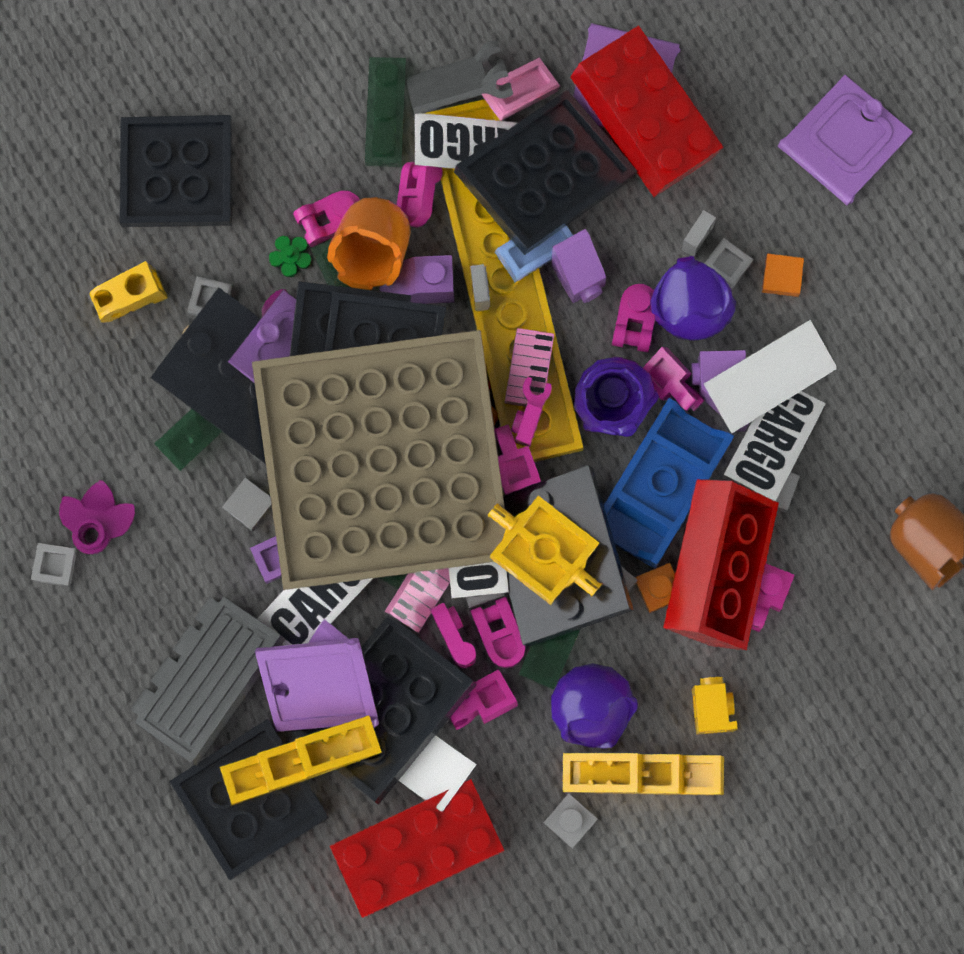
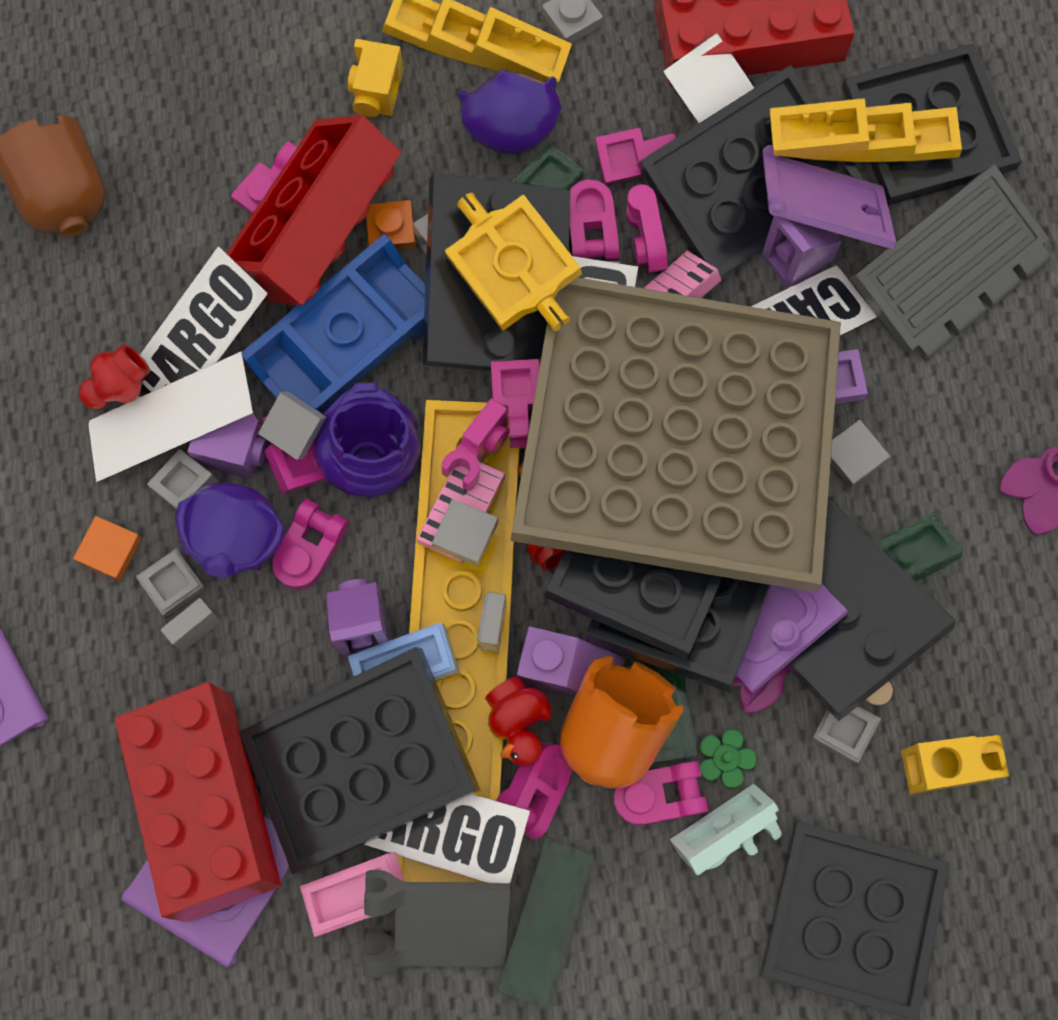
camera: 165 degrees left, 5 degrees down
(278, 202) = (726, 829): none -> light aqua plate
(447, 231) = (512, 713): none -> red animal
(519, 344) = (465, 532): none -> light grey tile
(672, 387) = (292, 425): none -> light grey tile
(744, 333) = (180, 479): none -> light grey plate
(823, 394) = (113, 378): none -> red animal

